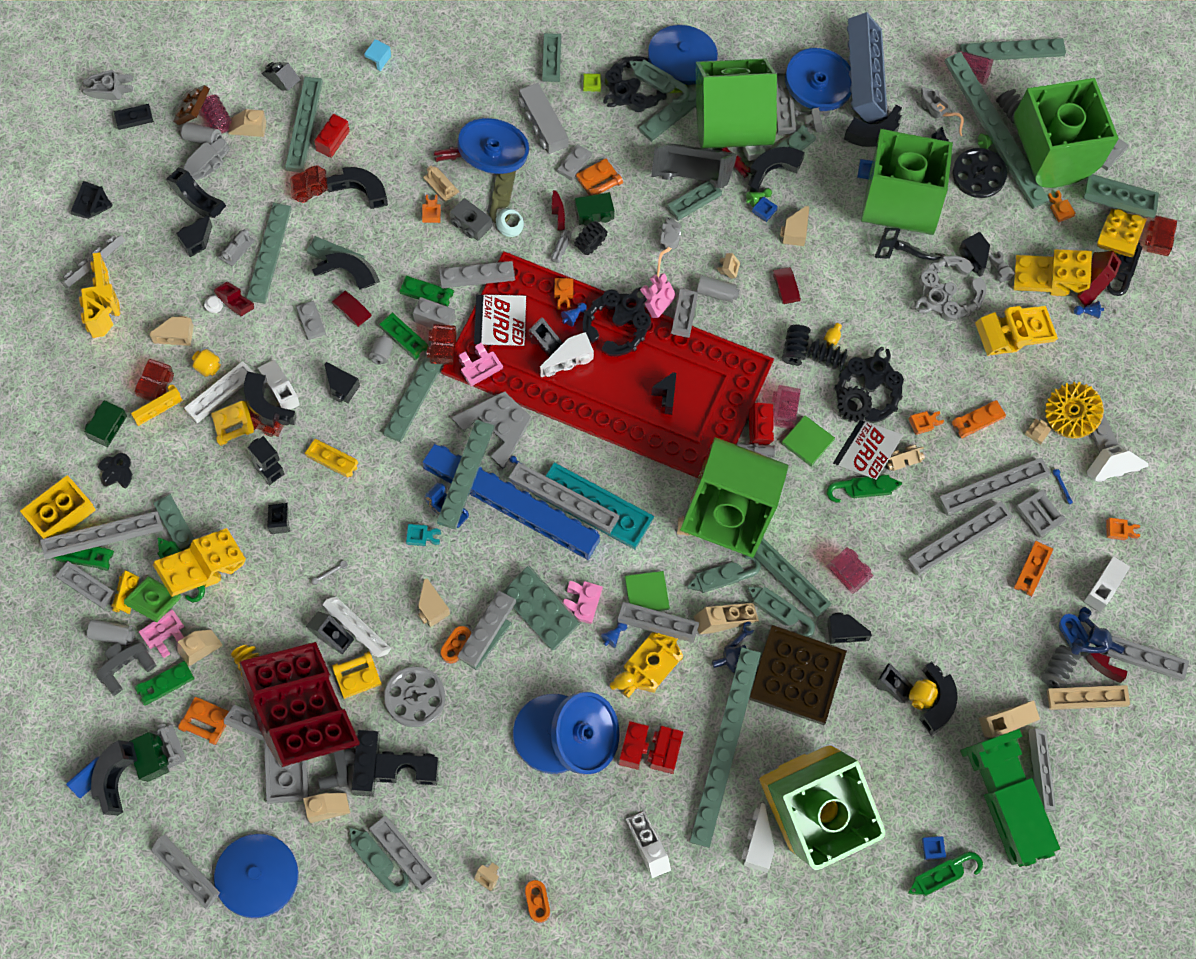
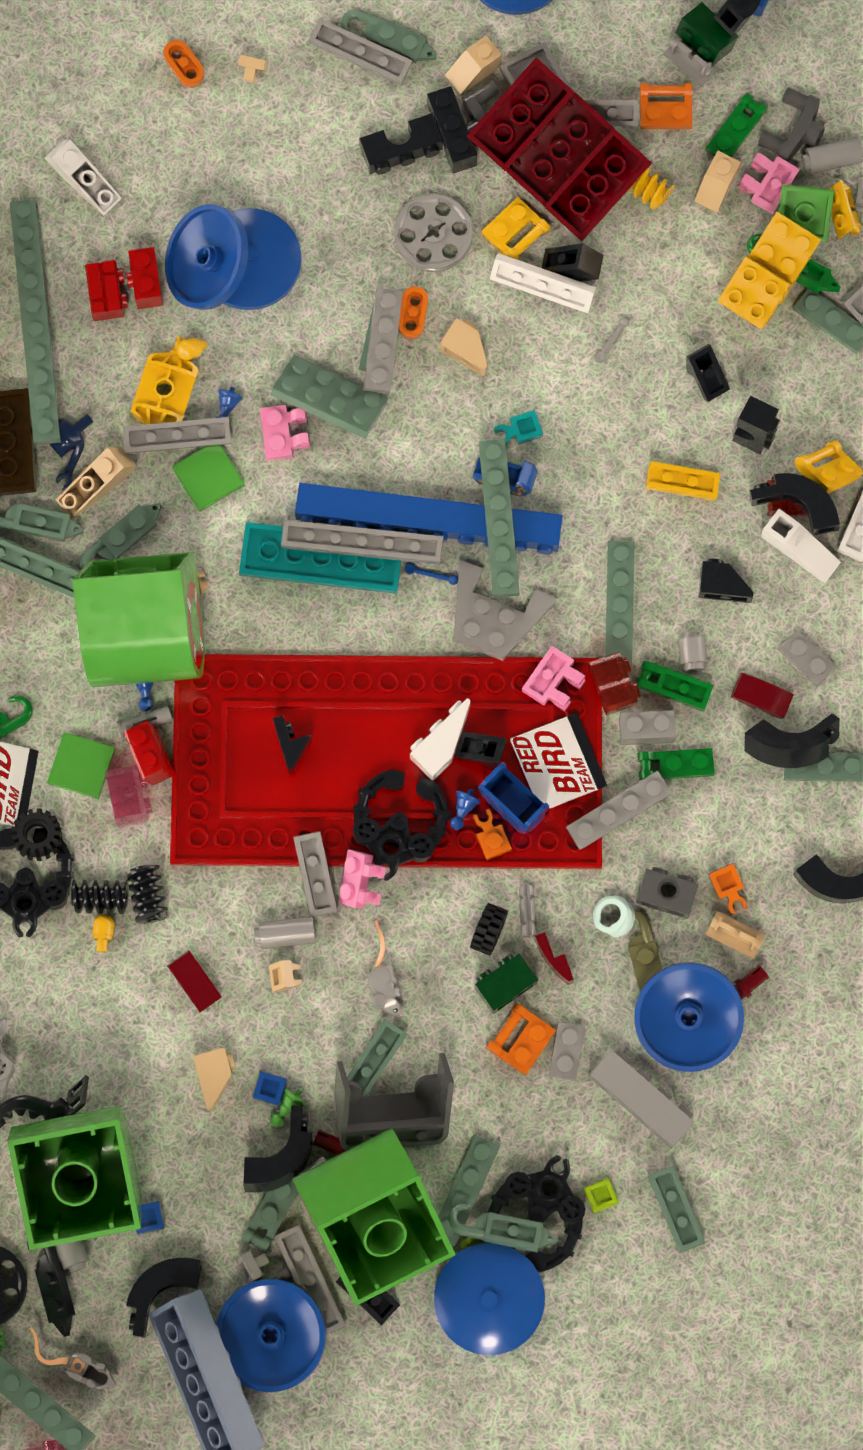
camera: 160 degrees right, 10 degrees up
(541, 295) = (512, 799): none -> blue piece

